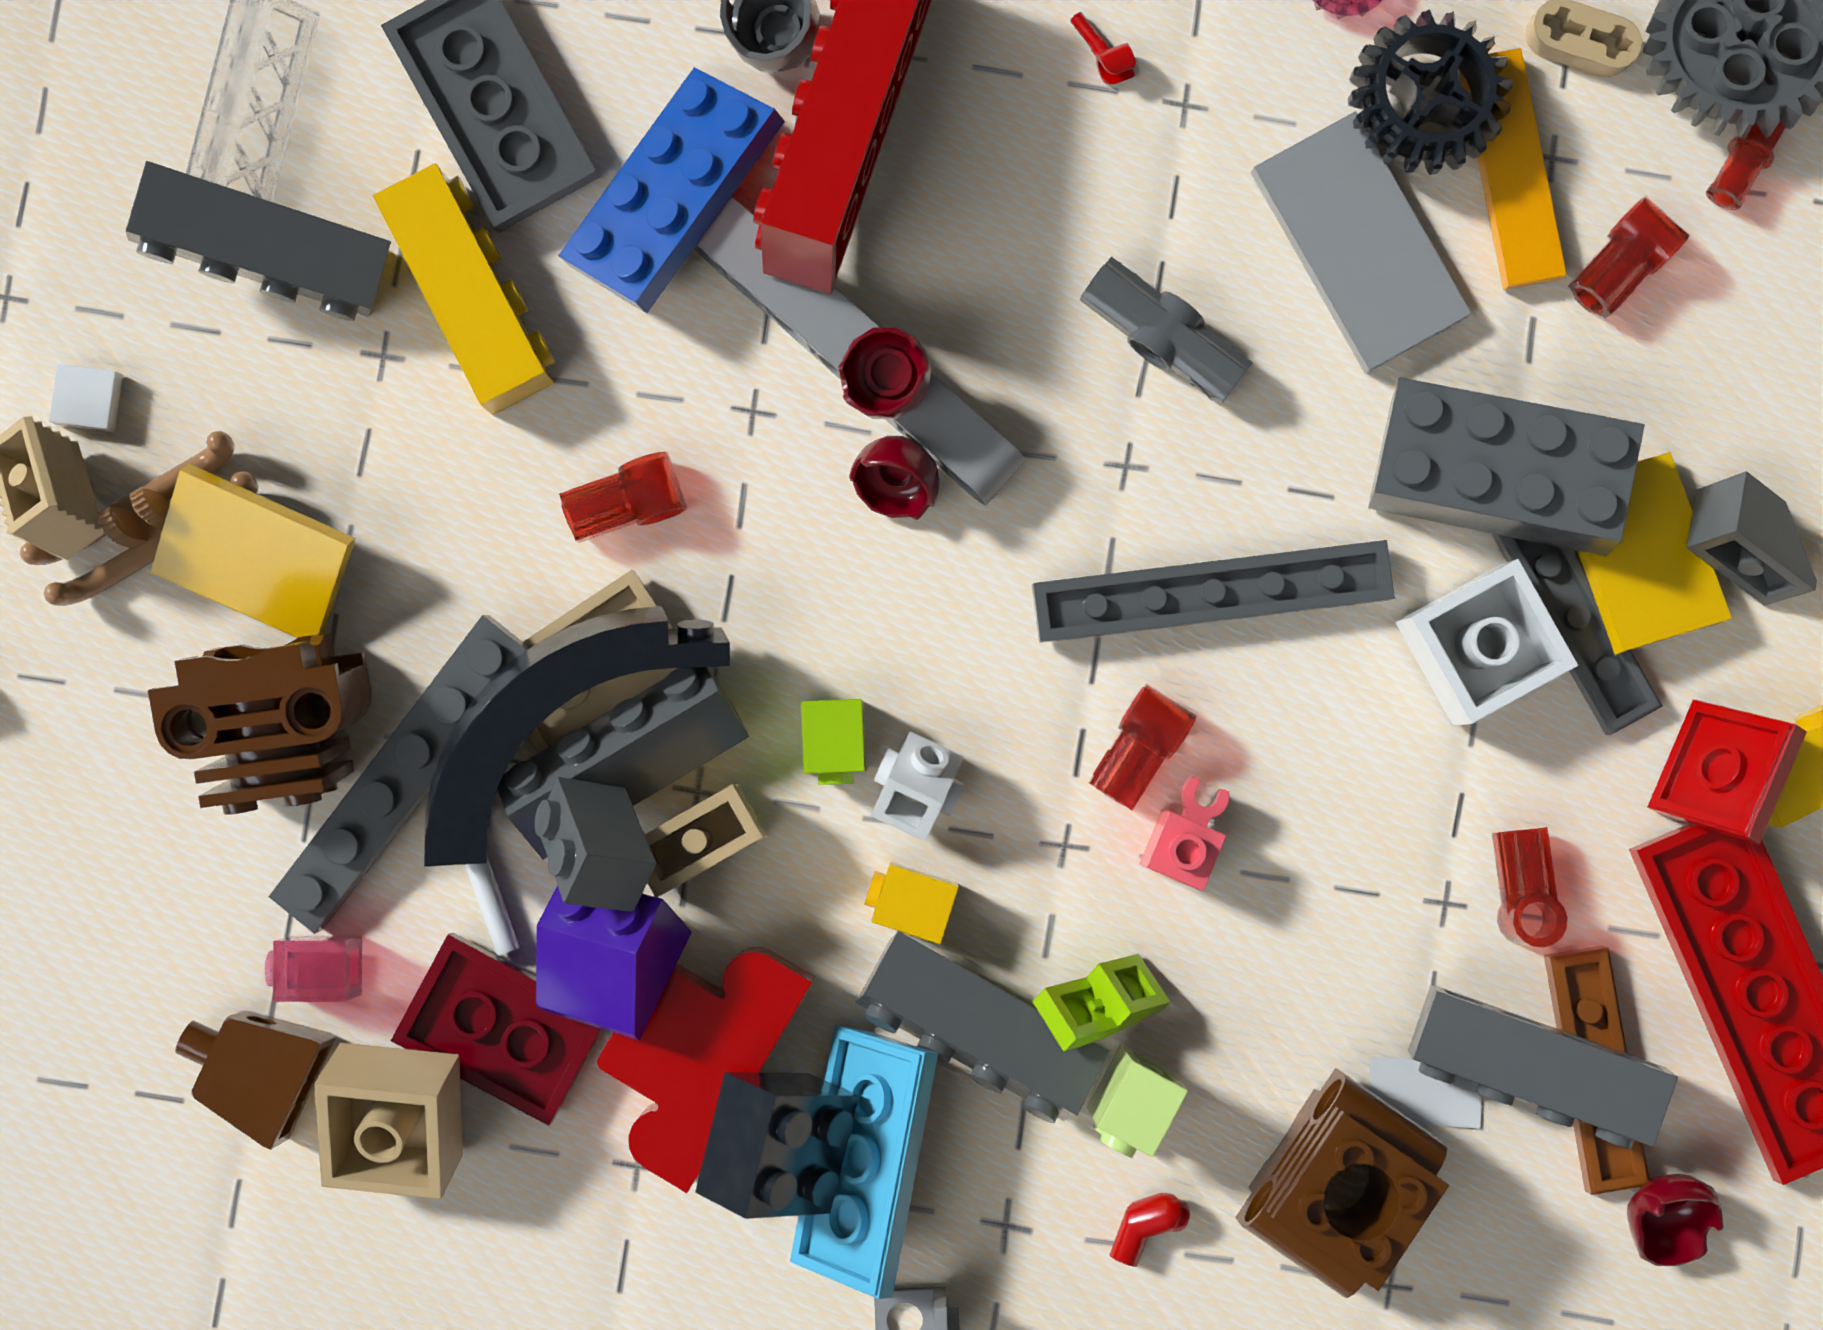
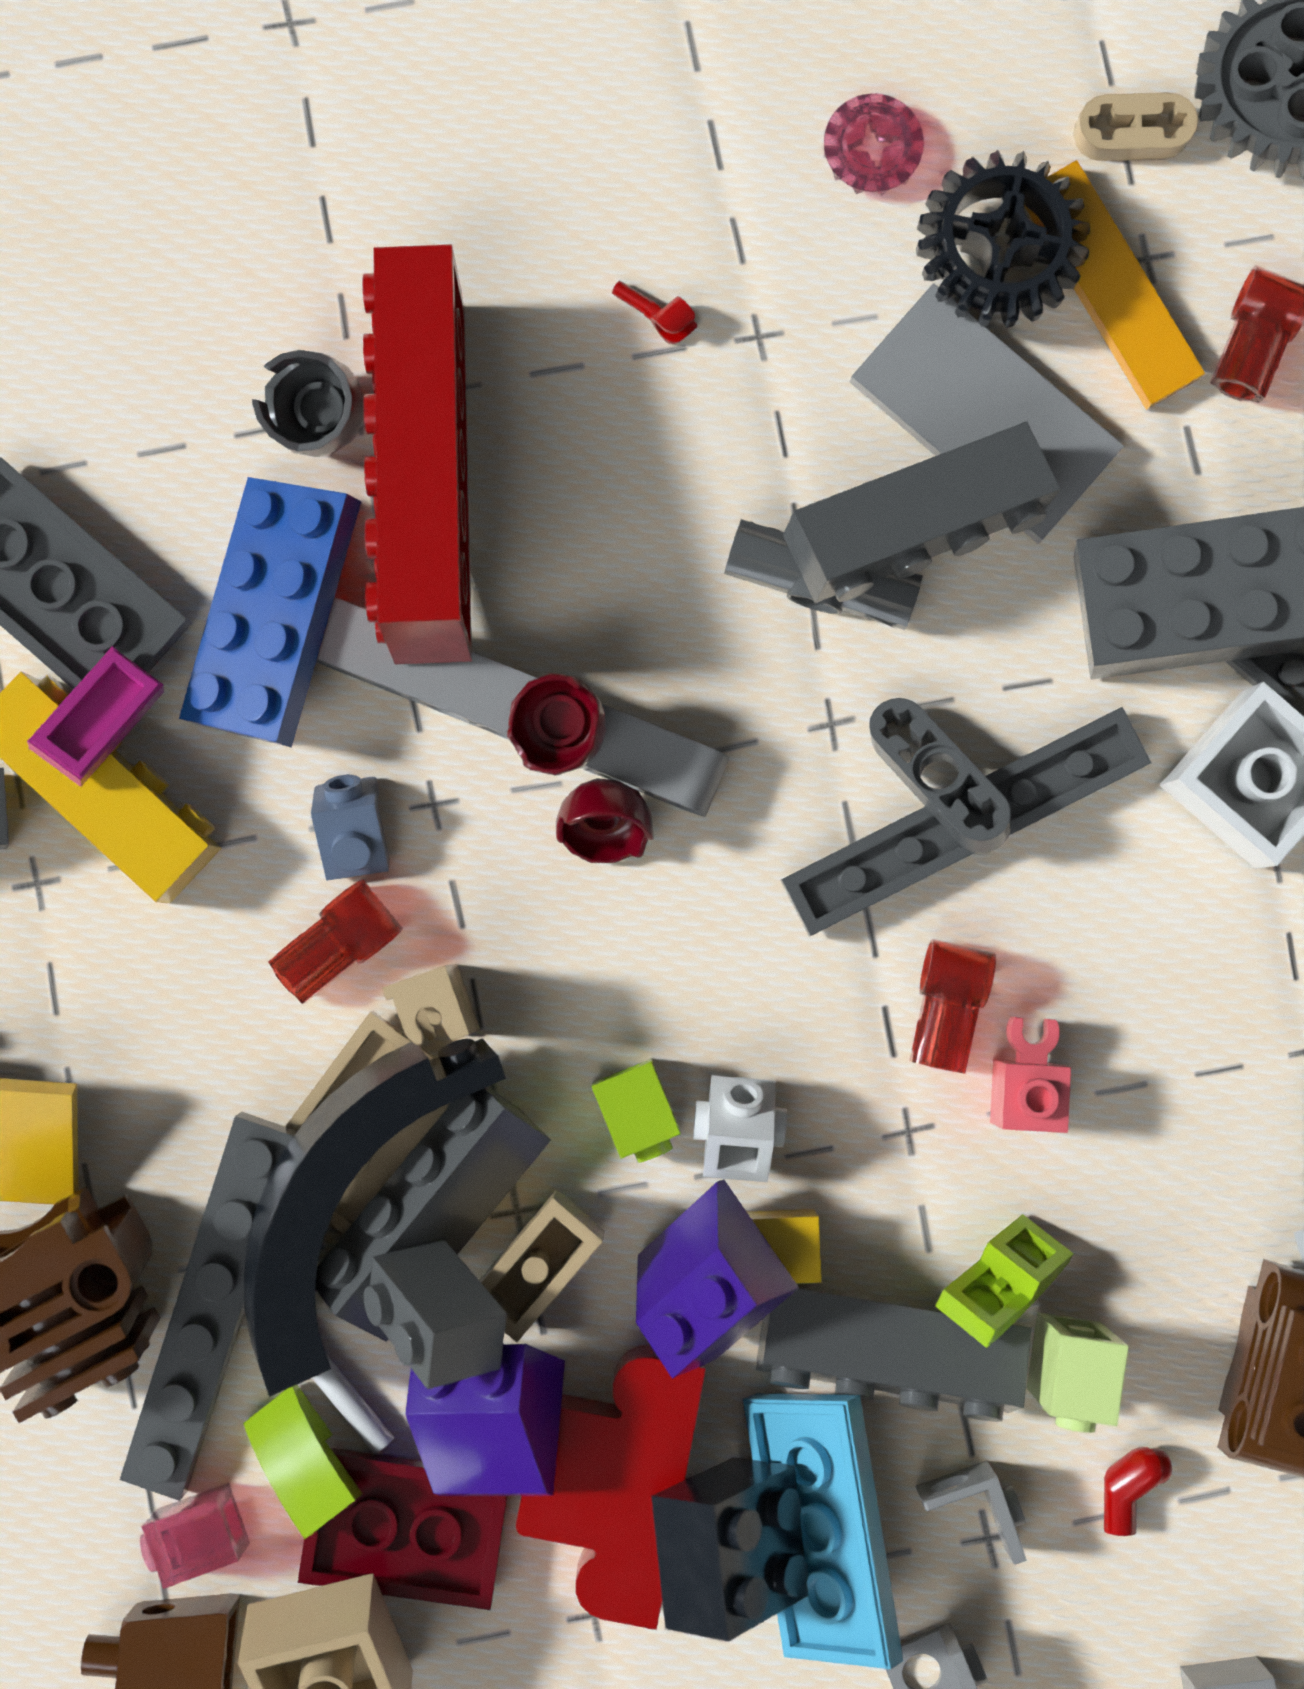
camera: 20 degrees left, 0 degrees up
(430, 938) = (298, 1461): none -> lime slope
(487, 225) = (96, 716): none -> dark pink tile
(672, 403) = (349, 827): none -> sand blue bracket
(691, 574) = (433, 999): none -> tan hinge
(841, 908) = (707, 1282): none -> dark purple slope
(1029, 1195) = (972, 1481): none -> light grey bracket
(1201, 566) = (982, 797): none -> dark grey beam
(1270, 304) = (921, 513): none -> dark grey brick

